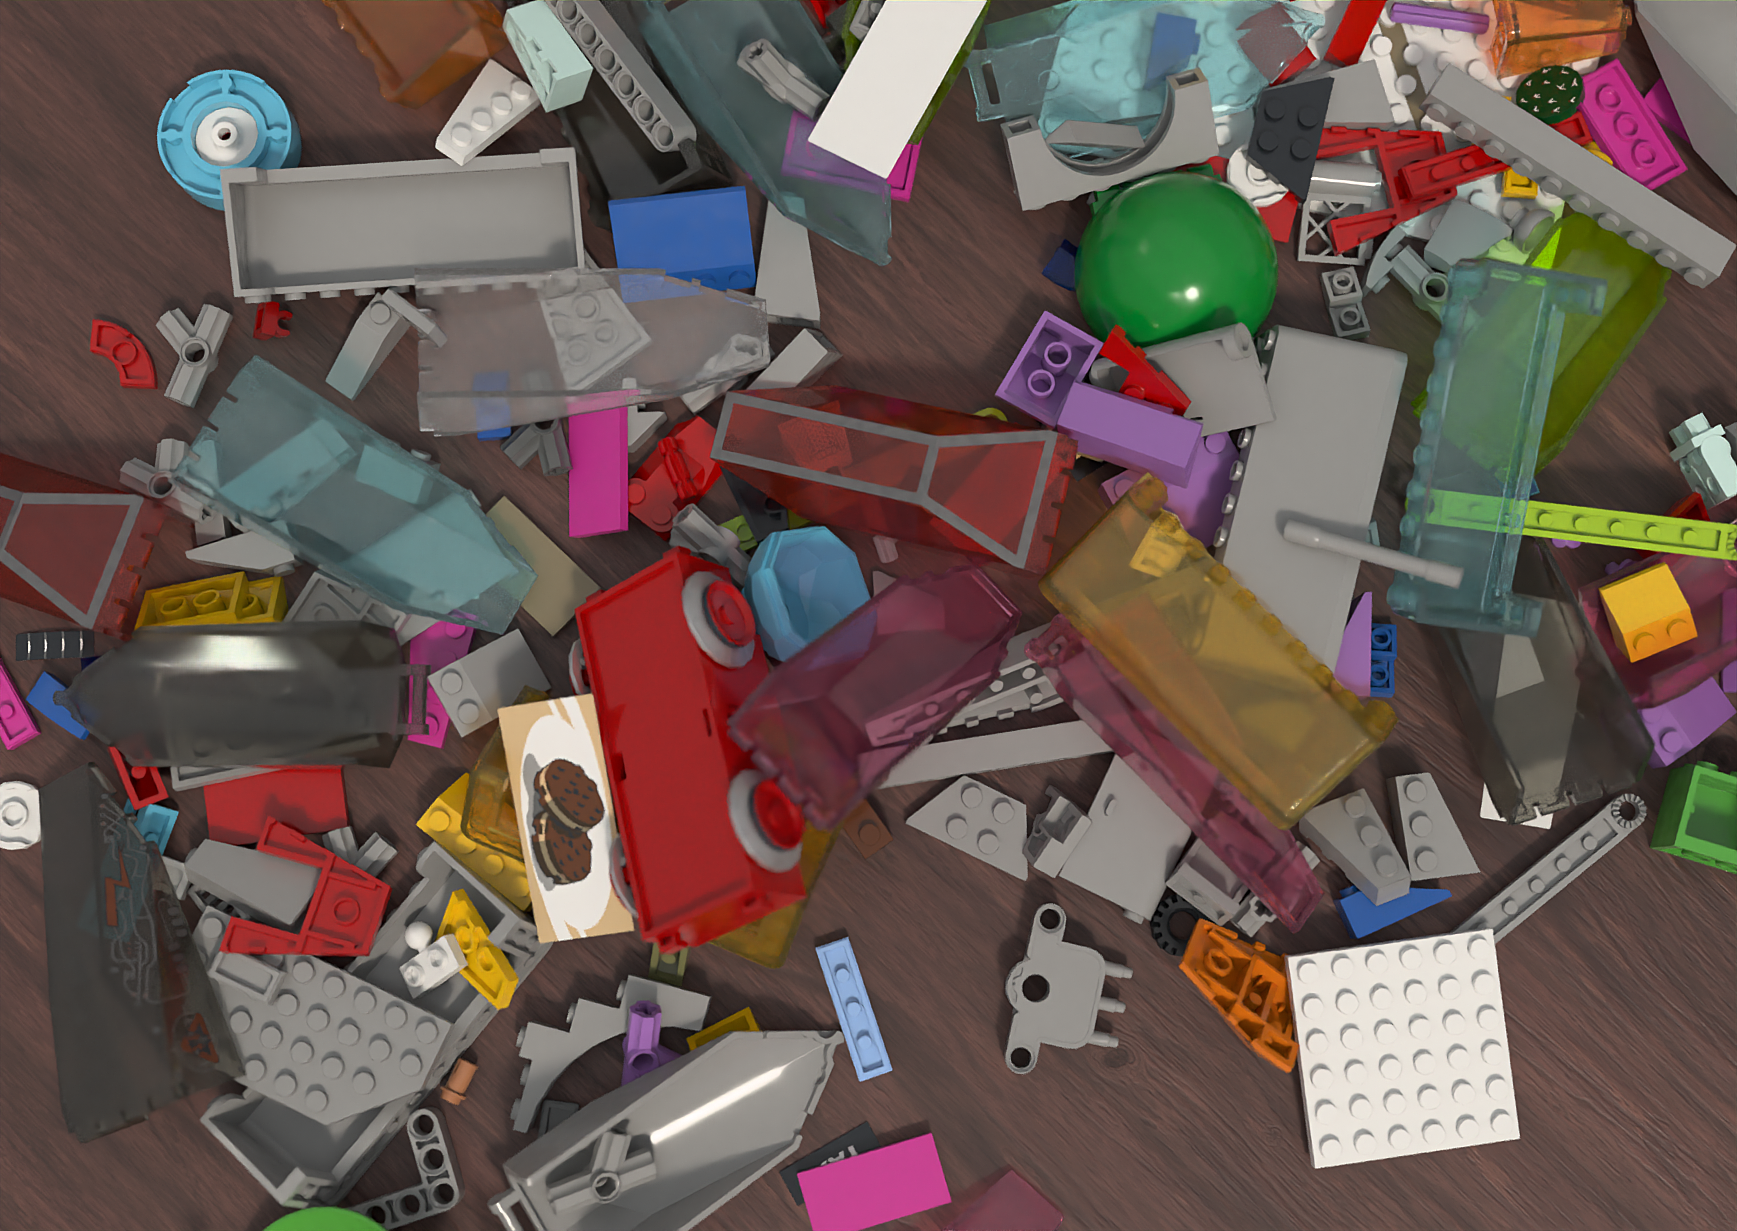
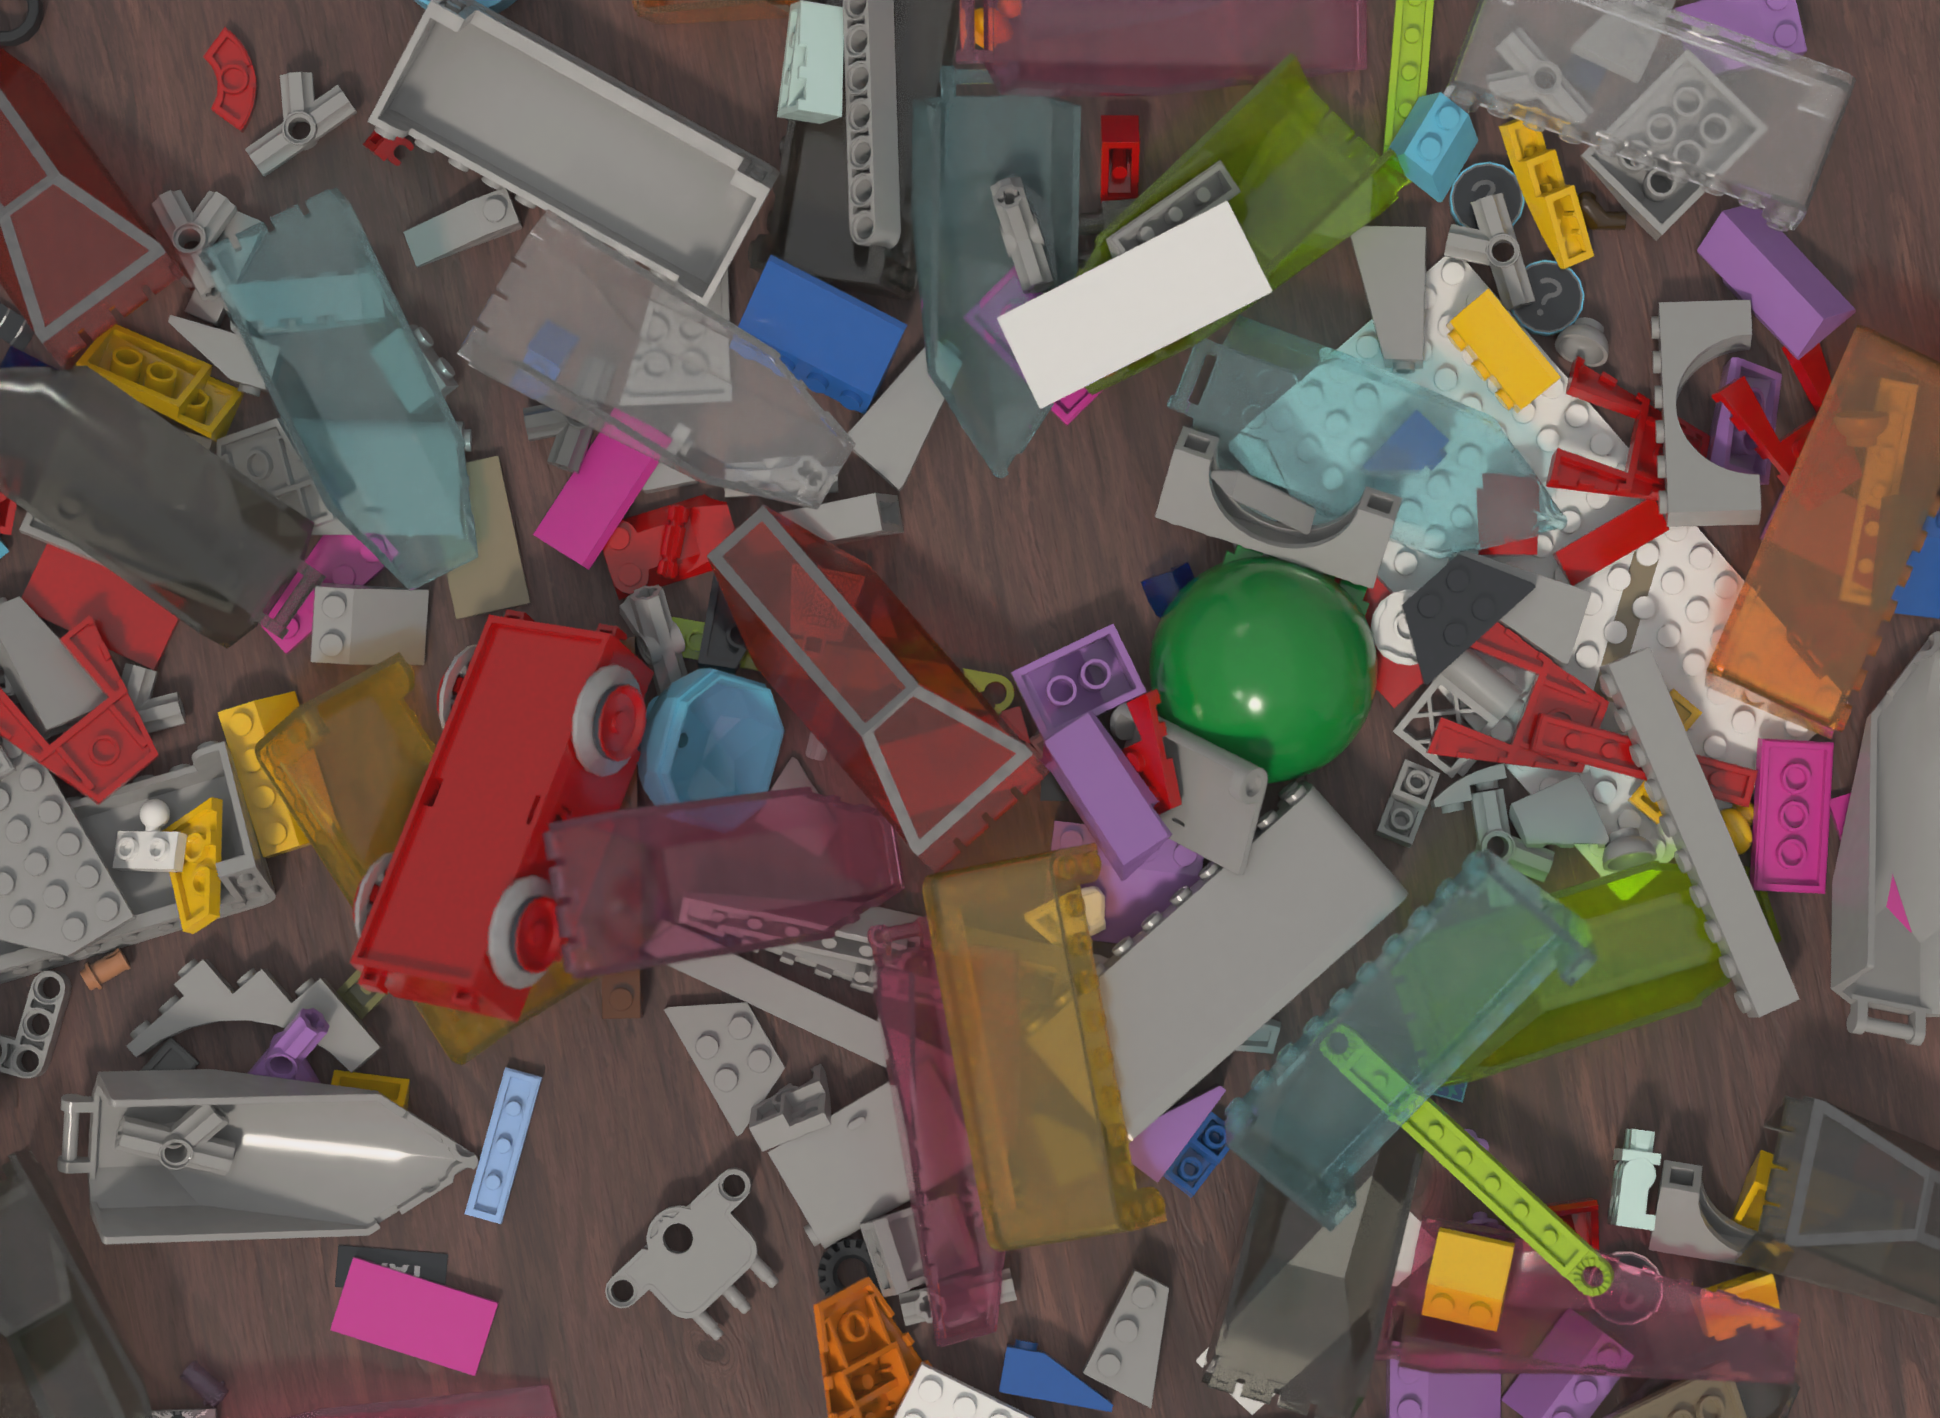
camera: 30 degrees right, 5 degrees up
(414, 317) = (522, 241): light grey tile -> none
(486, 112) = (724, 78): white wing -> none
(563, 816) = (354, 800): sticker -> none
(1359, 844) = (1058, 1305): light grey wedge -> none
(1429, 569) = (1273, 1107): light grey piece -> none
(1439, 18) = (1687, 588): medium lavender axle -> none
(1551, 93) = (1736, 737): dark green tile -> none

